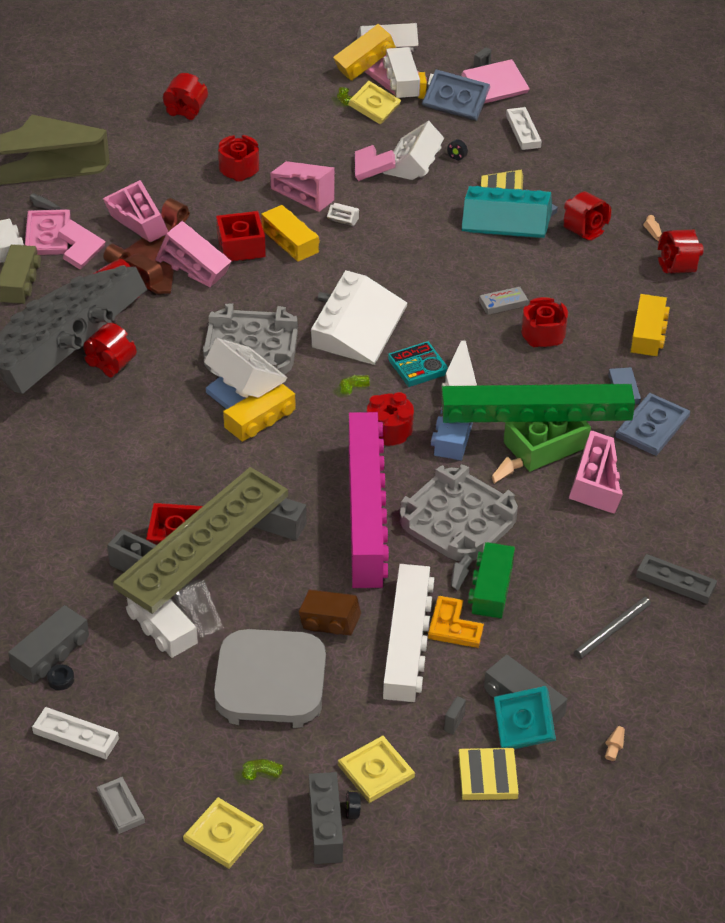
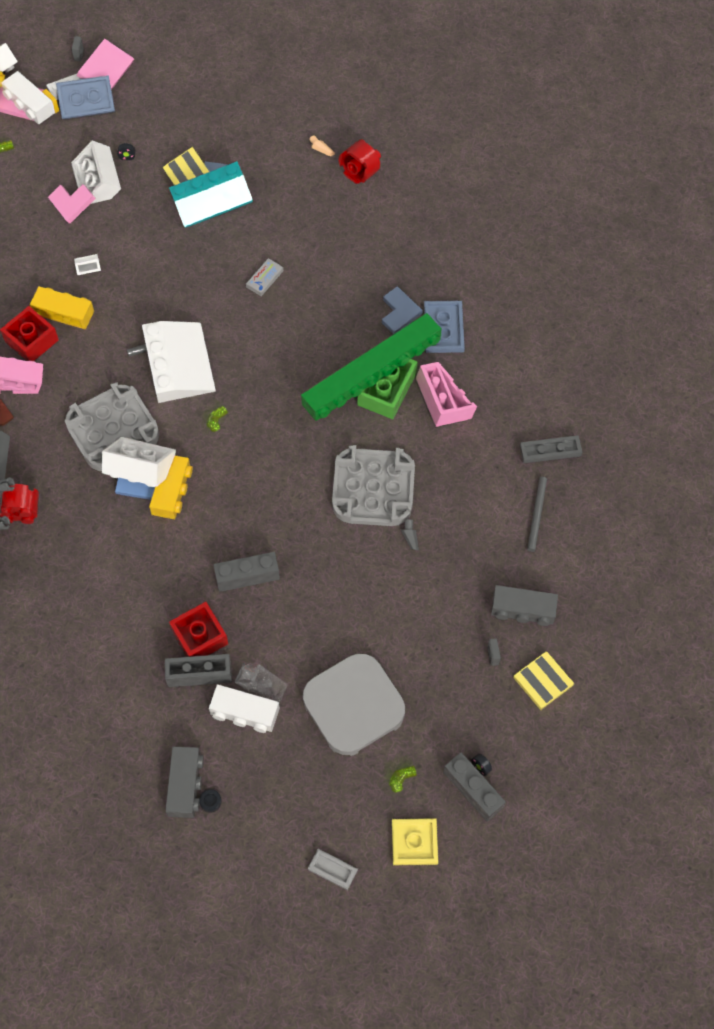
camera: 35 degrees left, 20 degrees up
(75, 733) = (259, 838): white plate -> none
(200, 540) = (231, 633): olive plate -> none
(305, 183) = (37, 253): bright pink wedge -> none
(330, 612) = (354, 627): reddish brown brick -> none
(367, 501) = (309, 518): dark pink brick -> none
(374, 102) = (25, 139): light yellow tile -> none
(376, 769) = (472, 725): light yellow tile -> none
(396, 414) = (269, 436): red brick -> none
(406, 634) = (415, 607): white brick -> none
(418, 364) = (248, 372): tile -> none
(448, 626) = (436, 584): light orange tile -> none
(450, 439) = (322, 430): medium blue brick -> none
(460, 369) = (292, 372): white slope -> none
(492, 580) = (438, 528): green brick -> none
(506, 468) = (376, 427): light nougat bar -> none
(523, 128) = (159, 101): white plate -> none
(524, 718) = (541, 627): teal tile -> none
(544, 322) = (313, 283): red brick -> none
(586, 215) = (271, 165): red brick -> none
(615, 743) = (602, 603): light nougat bar -> none
(650, 325) = (383, 240): yellow brick -> none

